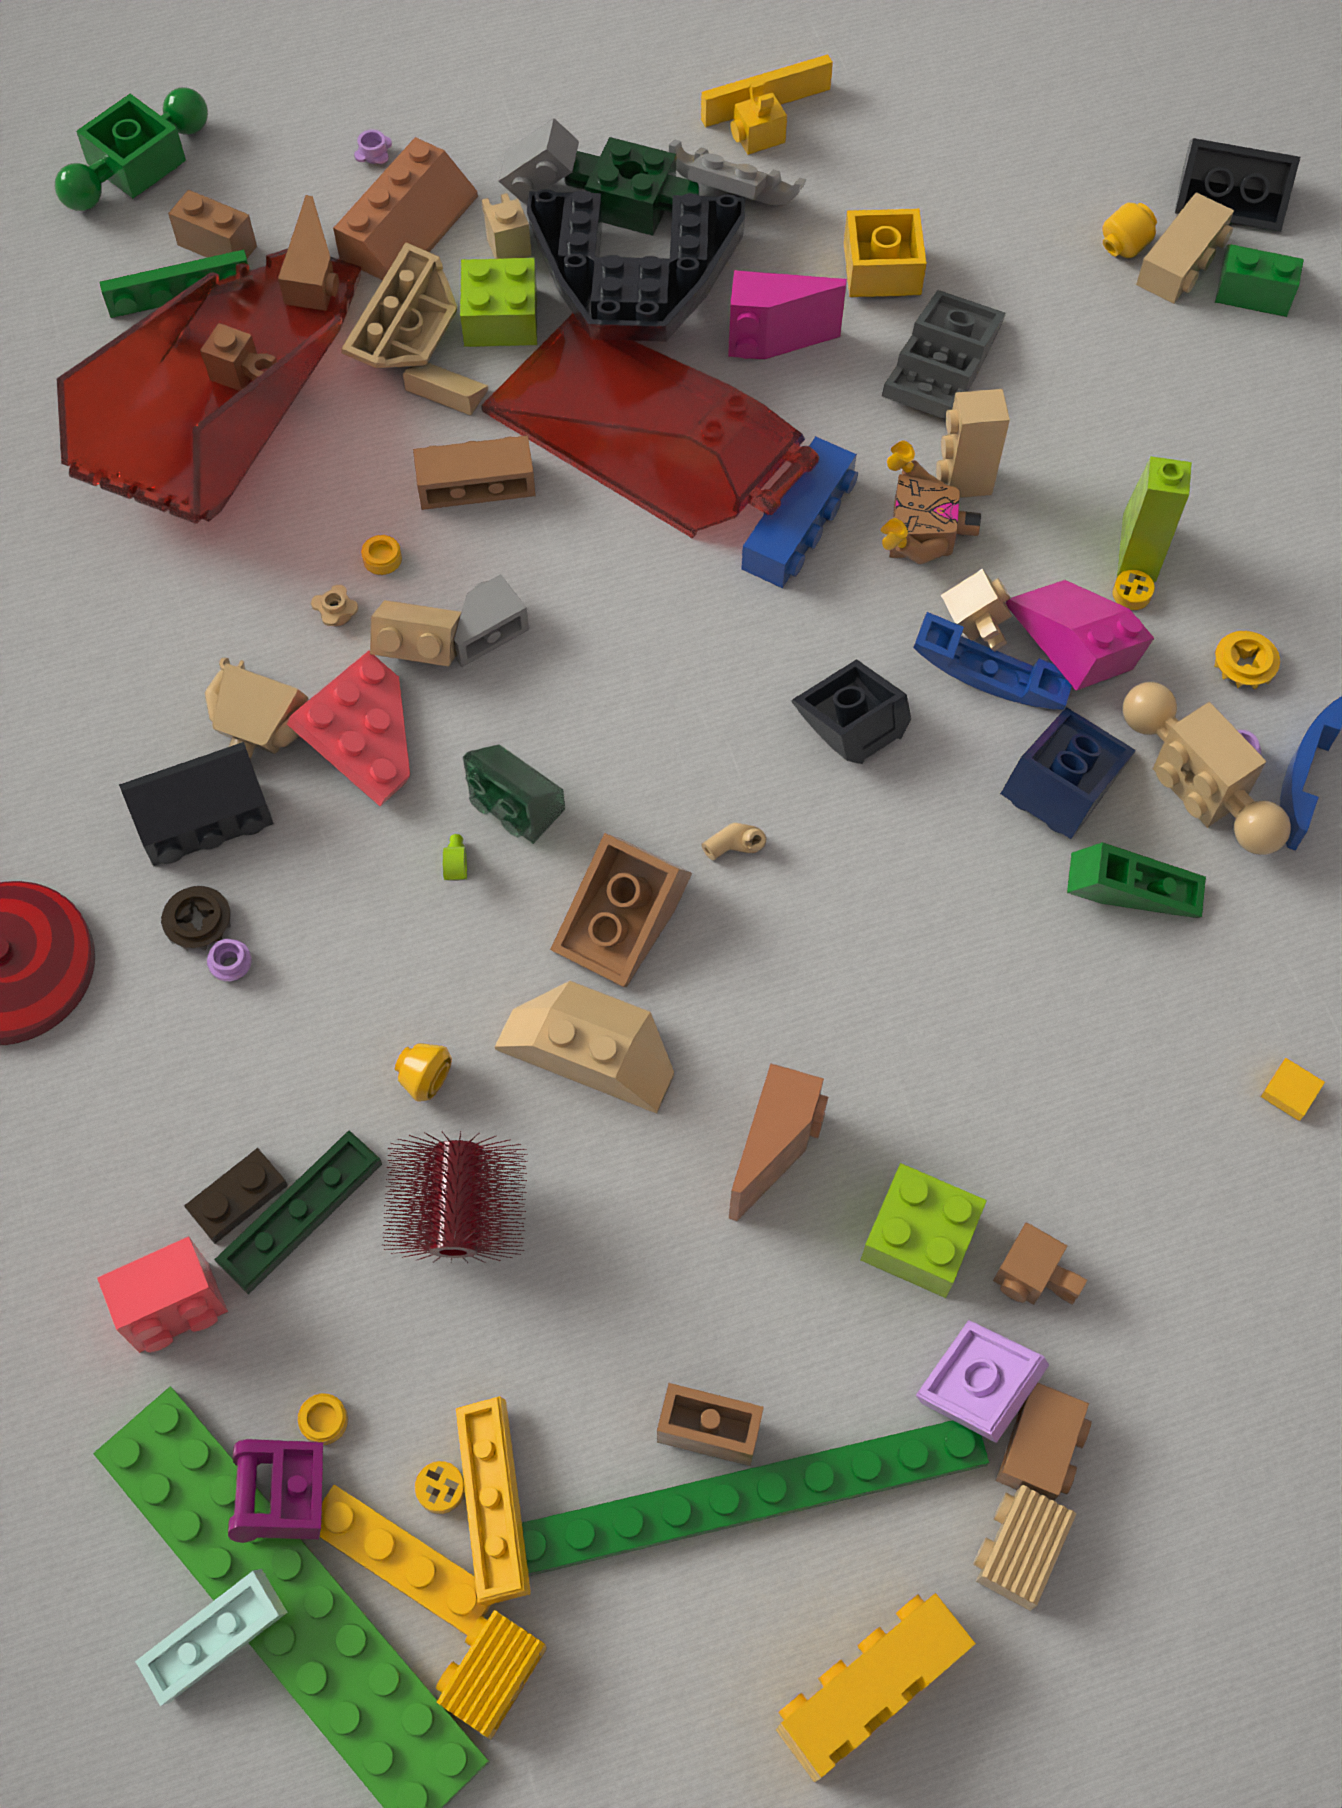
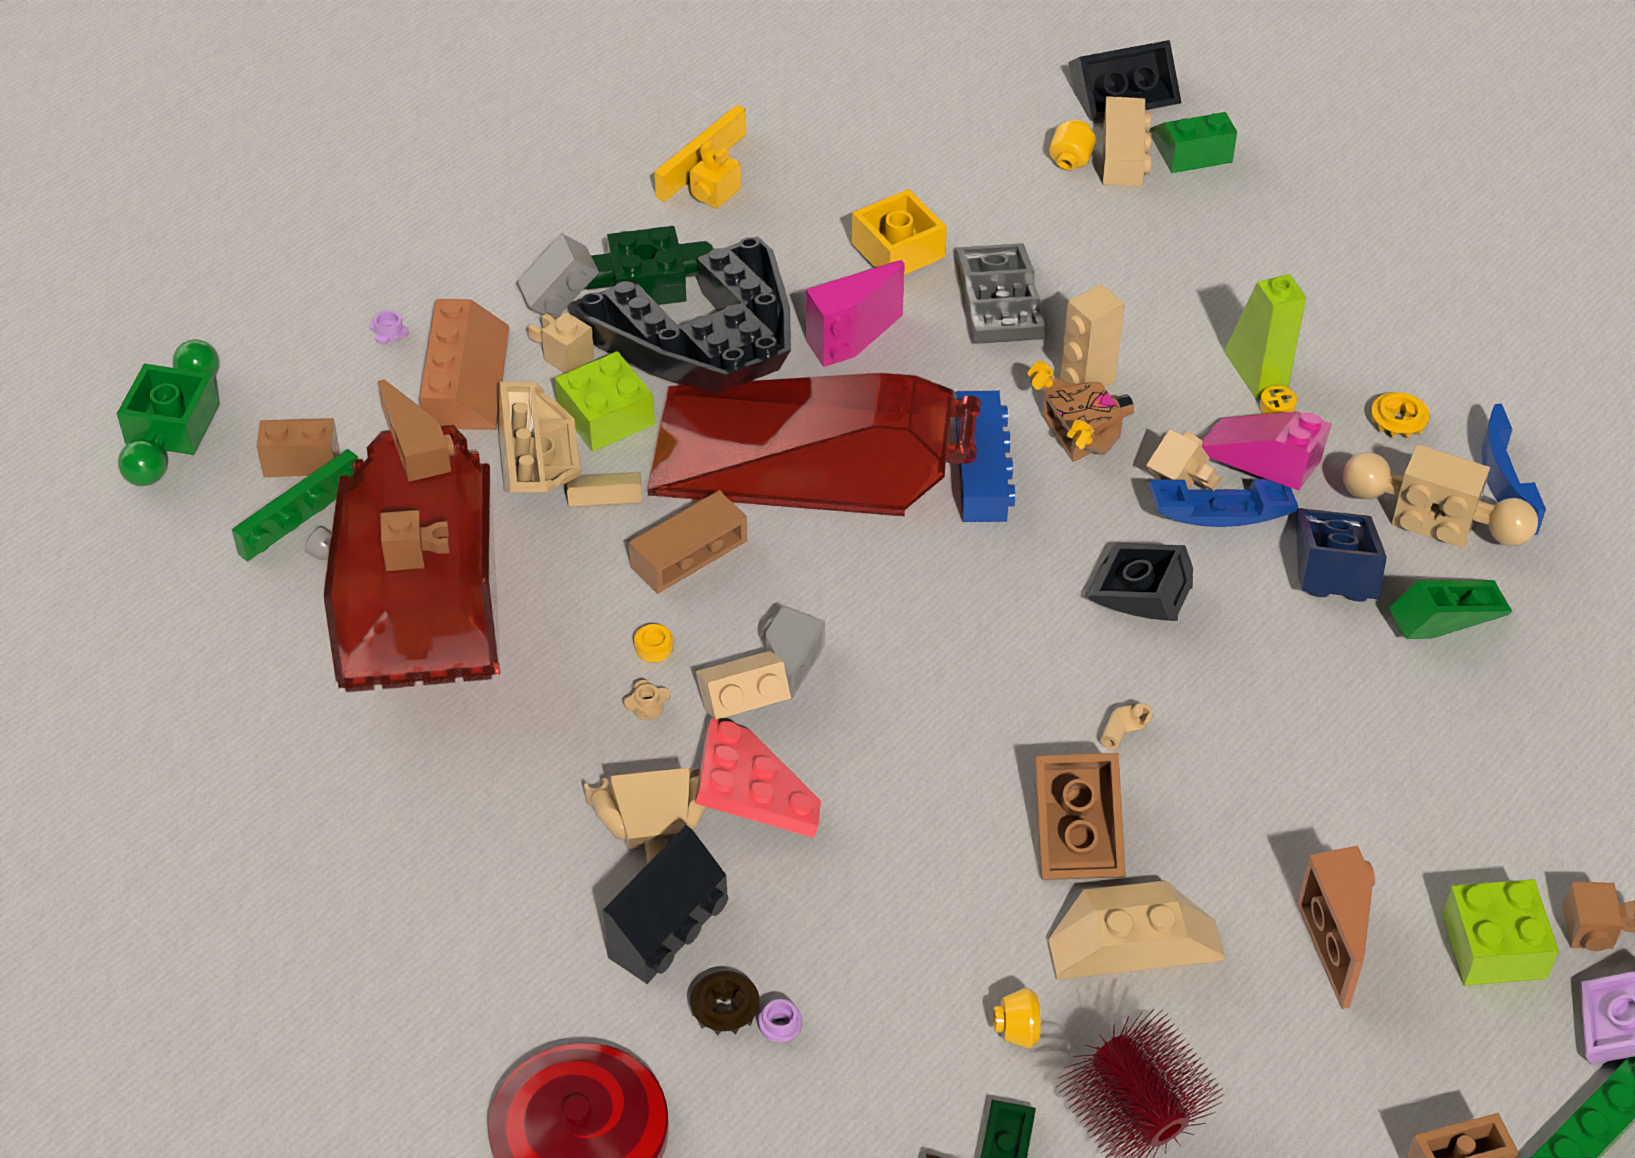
camera: 30 degrees left, 15 degrees down
(455, 859) = (913, 847): lime piece -> none
(512, 791) = (923, 771): clear green slope -> none
(734, 178) = (723, 228): light grey plate -> none

